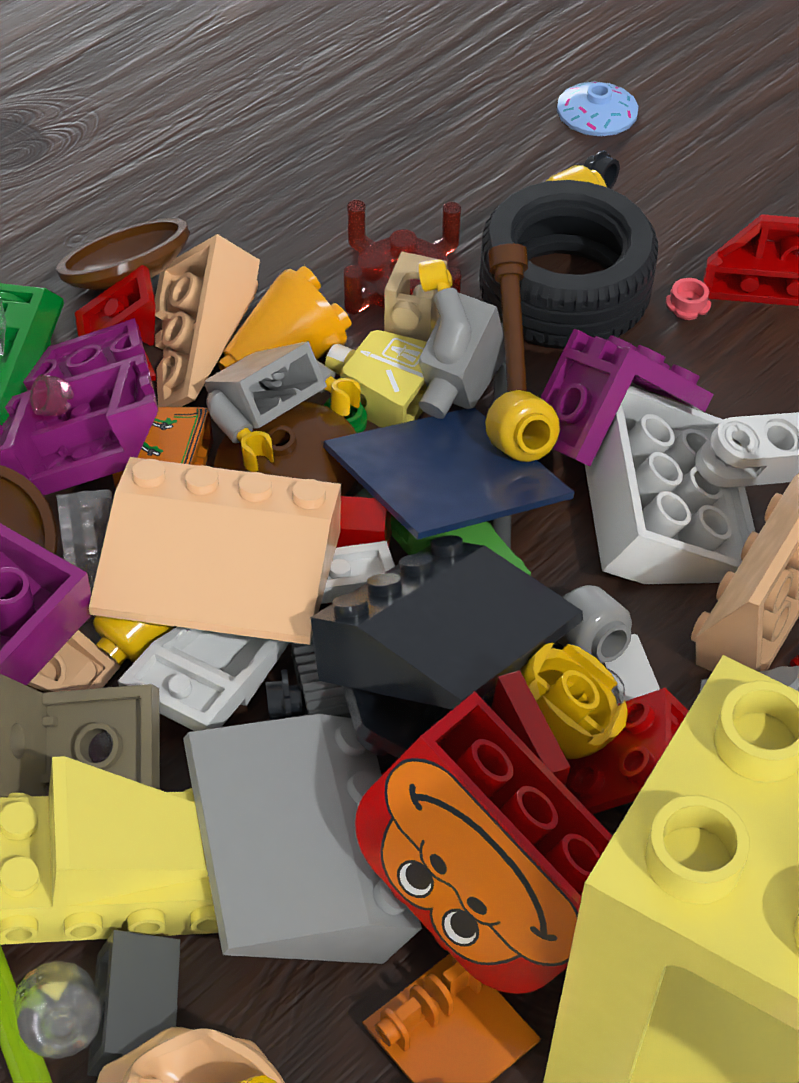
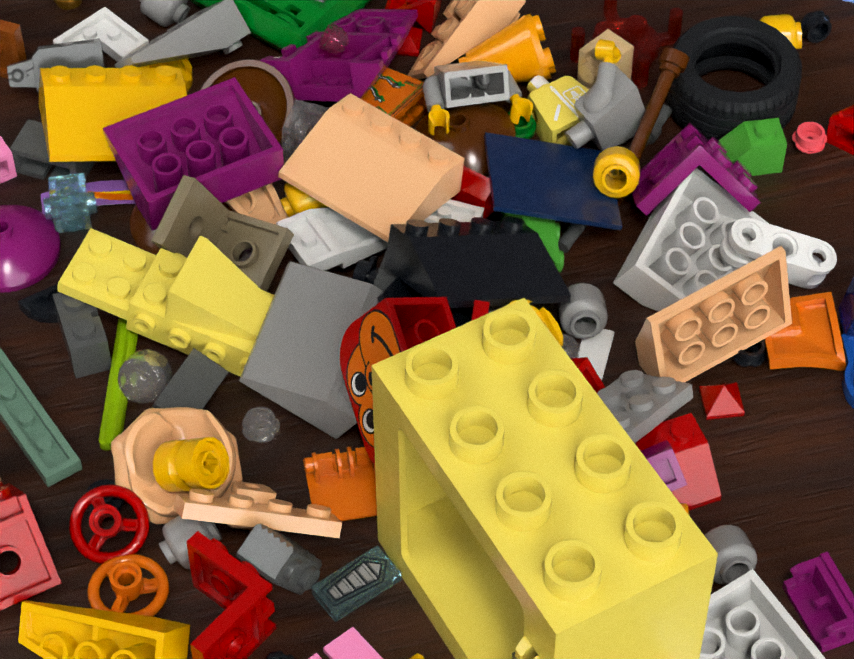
camera: 30 degrees right, 0 degrees up
(269, 984) = (260, 417): none -> clear plate
(651, 321) = (757, 145): none -> bright green slope

